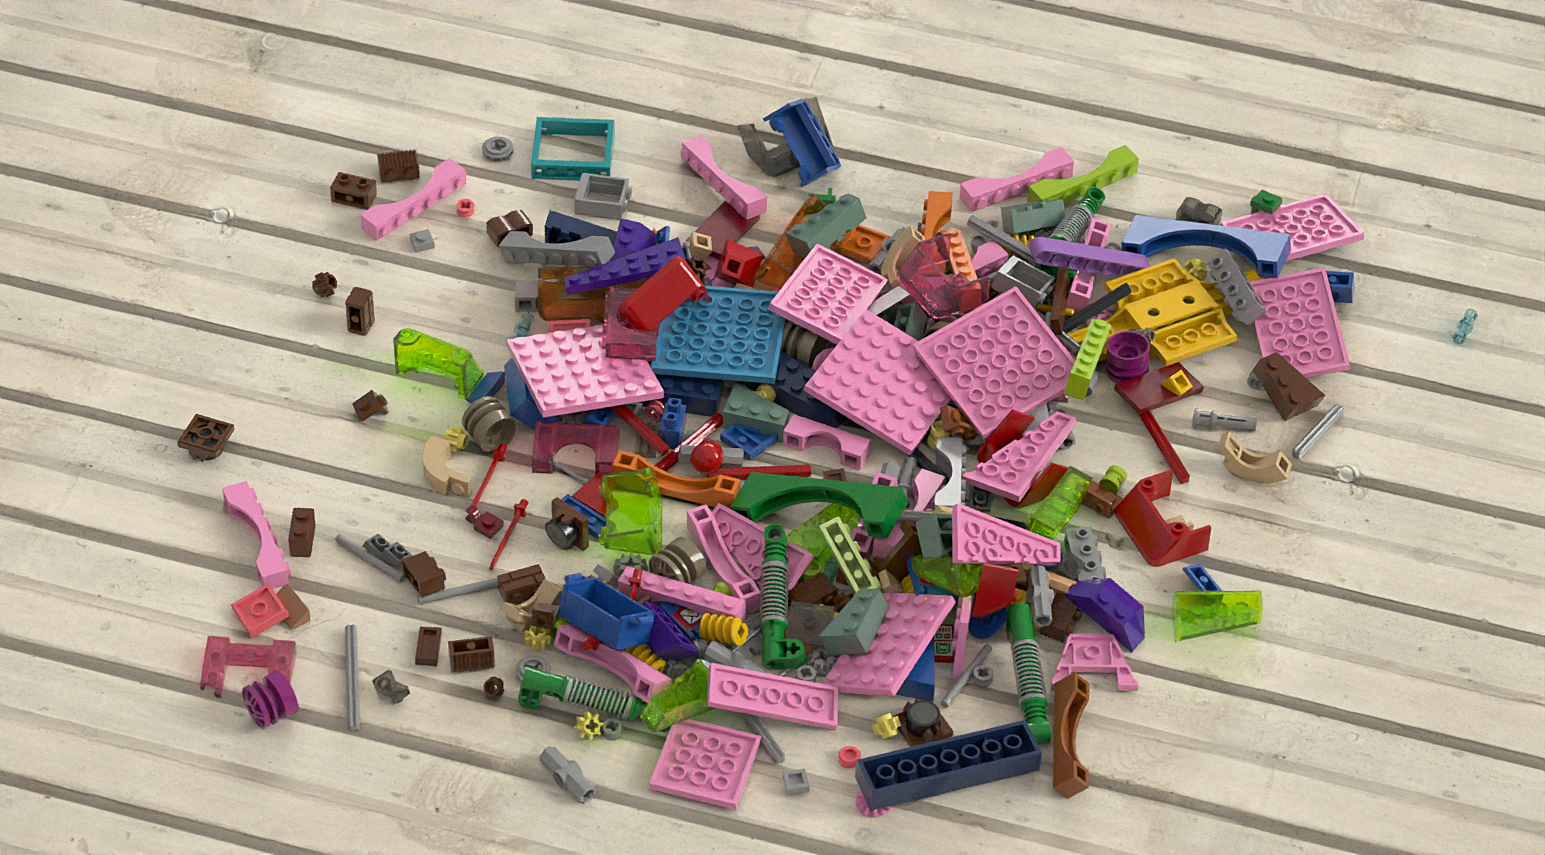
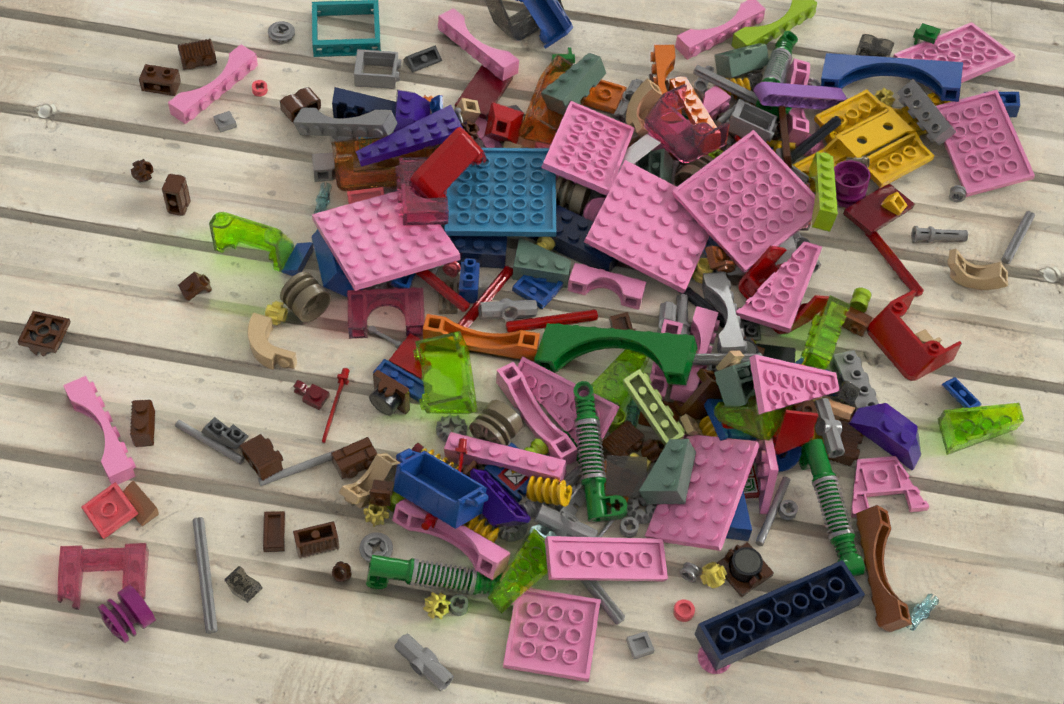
camera: 10 degrees left, 10 degrees up
(498, 456) = (316, 325): red sword -> none
(605, 575) = (431, 441): light grey plate -> none
(658, 189) = (423, 59): none -> dark grey slope
(707, 457) = (506, 313): red hair -> none
(862, 721) = (690, 572): none -> light grey bush
(1105, 781) = (922, 611): none -> clear light blue pin
(1286, 386) = (987, 199): reddish brown wedge -> none

